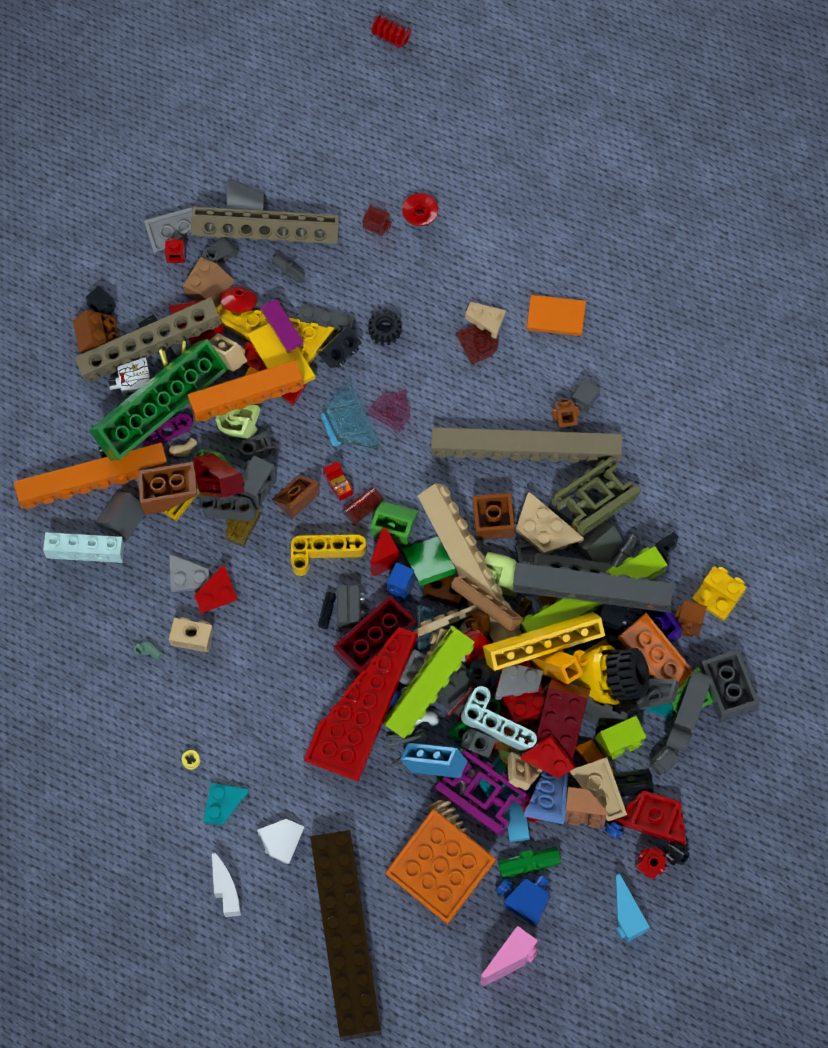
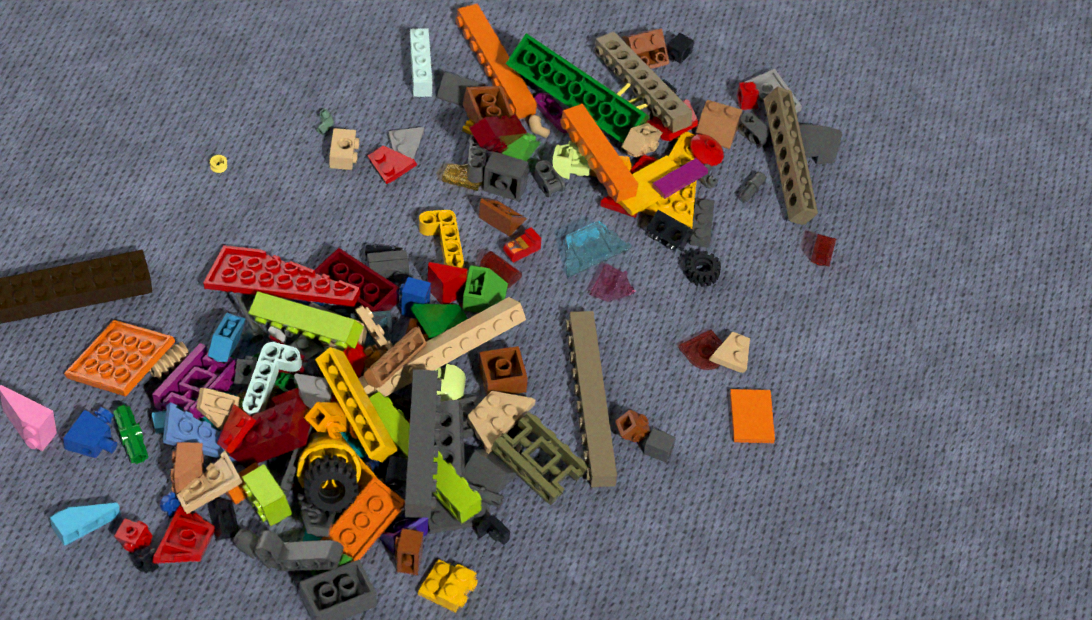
camera: 75 degrees right, 15 degrees down
(131, 377) = (606, 75): white torso -> none
(222, 802) = (177, 191): teal wing -> none
(225, 888) = (93, 198): white slope -> none
(281, 839) = (143, 236): white slope -> none
(389, 32) = (1053, 242): red piece -> none
(417, 203) = (846, 279): red dish -> none

